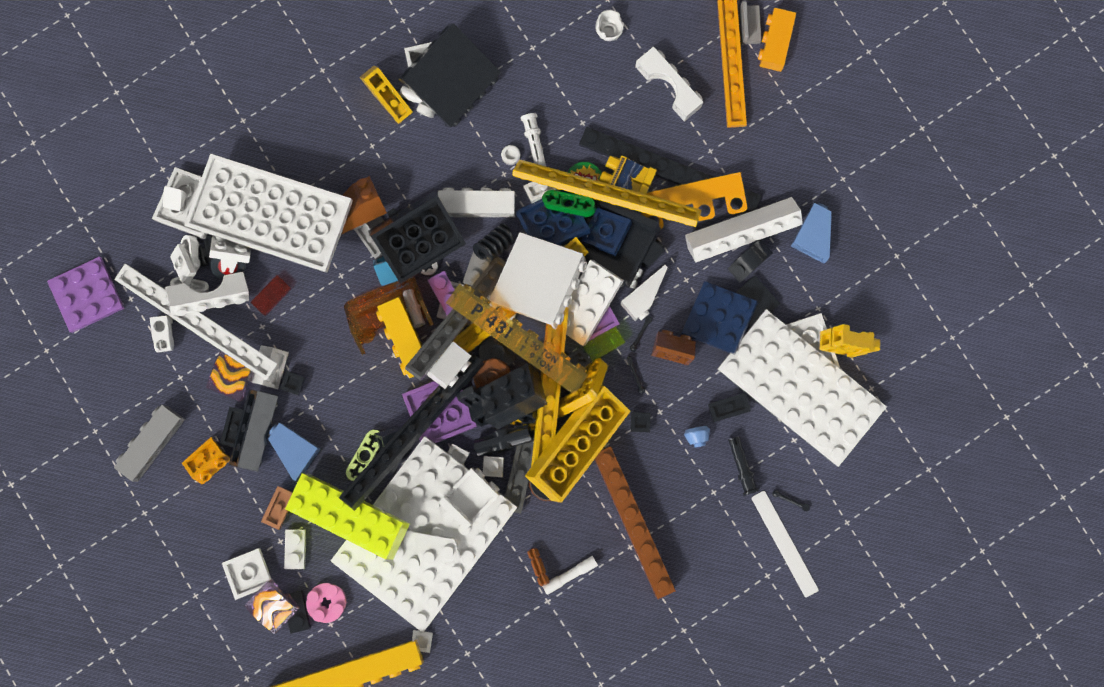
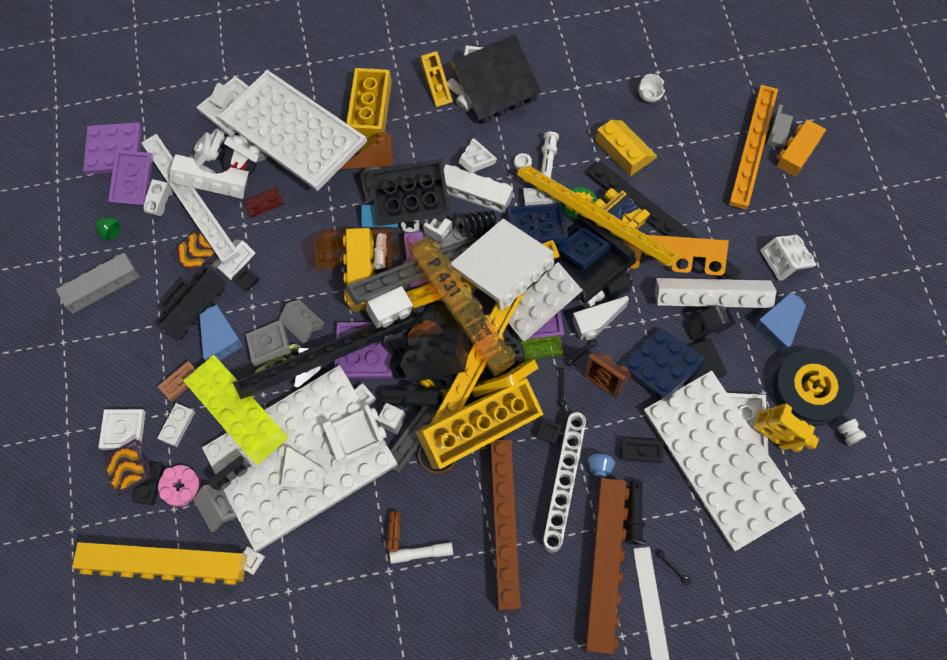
camera: 25 degrees right, 15 degrees down
(125, 323) = (130, 177): none -> medium lavender plate
(128, 384) = (107, 228): none -> green cone
(206, 461) = (137, 317): light orange bracket -> none
(330, 149) = (369, 101): none -> yellow brick
(345, 440) = (268, 343): none -> light grey plate
(365, 404) = (300, 320): none -> light grey panel
(367, 583) = (226, 475): none -> black plate
(367, 608) = (214, 507): none -> light grey panel
(457, 260) = (437, 229): none -> white panel
(463, 169) = (476, 157): none -> white wing
(575, 209) = (568, 217): green beam -> none
(605, 100) = (624, 146): none -> yellow slope
(654, 66) = (680, 133): white arch -> none
(677, 470) = (560, 490): none -> white beam
(733, 523) = (606, 566): none -> dark orange brick
(799, 163) = (787, 255): none -> white bracket
(870, 270) = (825, 372): none -> black wheel
(908, 320) = (851, 432): none -> white wheel

